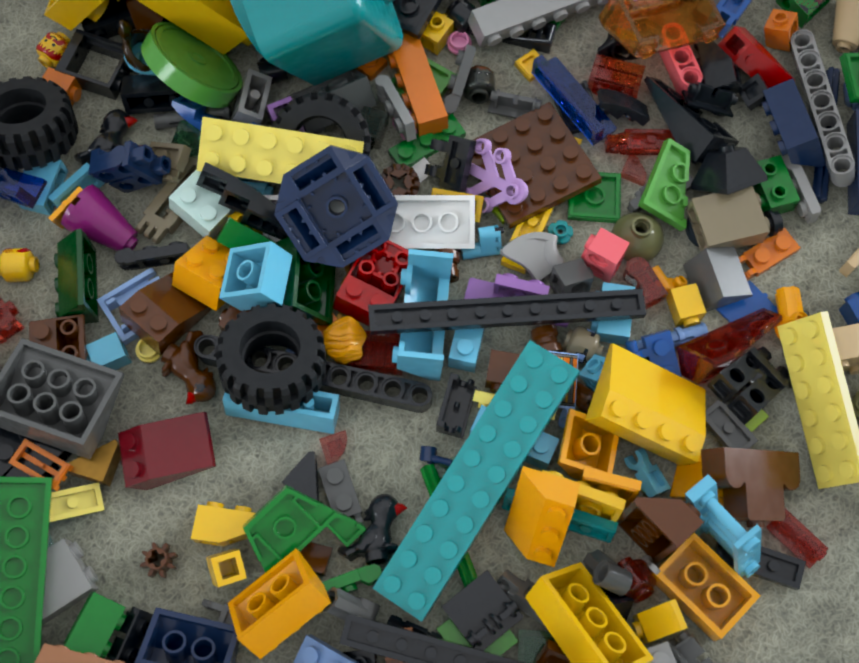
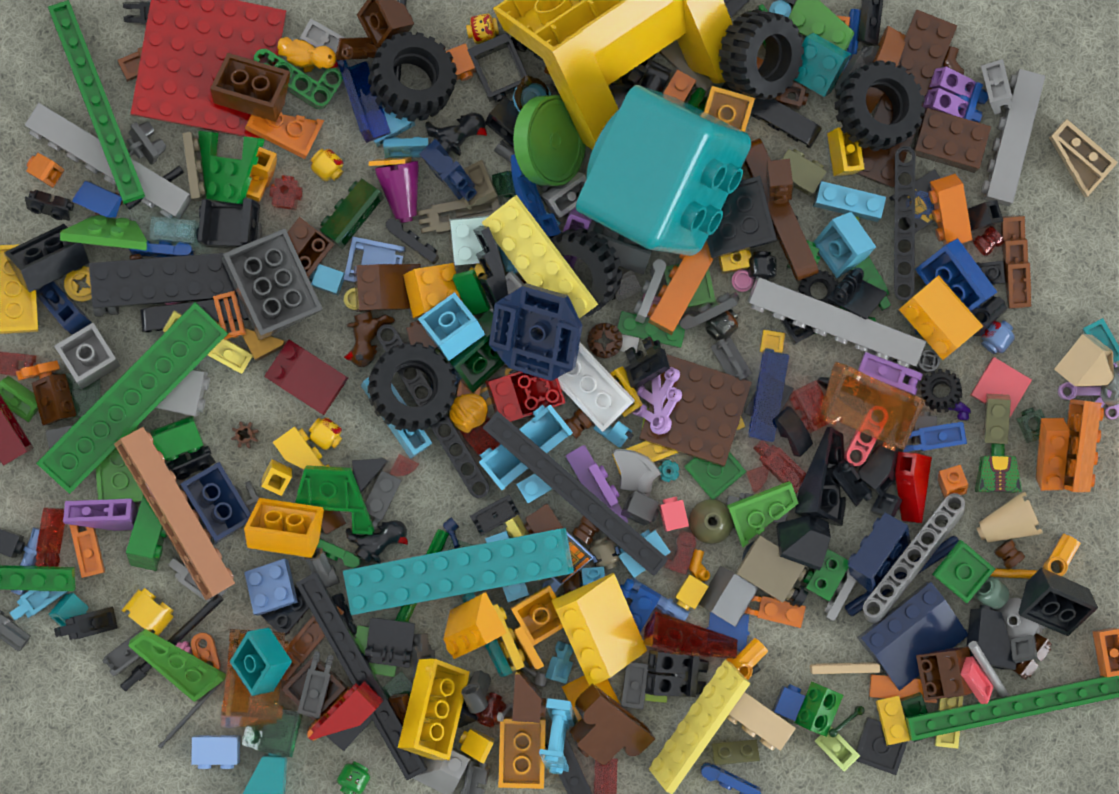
camera: 40 degrees right, 15 degrees up
(234, 486) = (325, 433): none -> yellow head

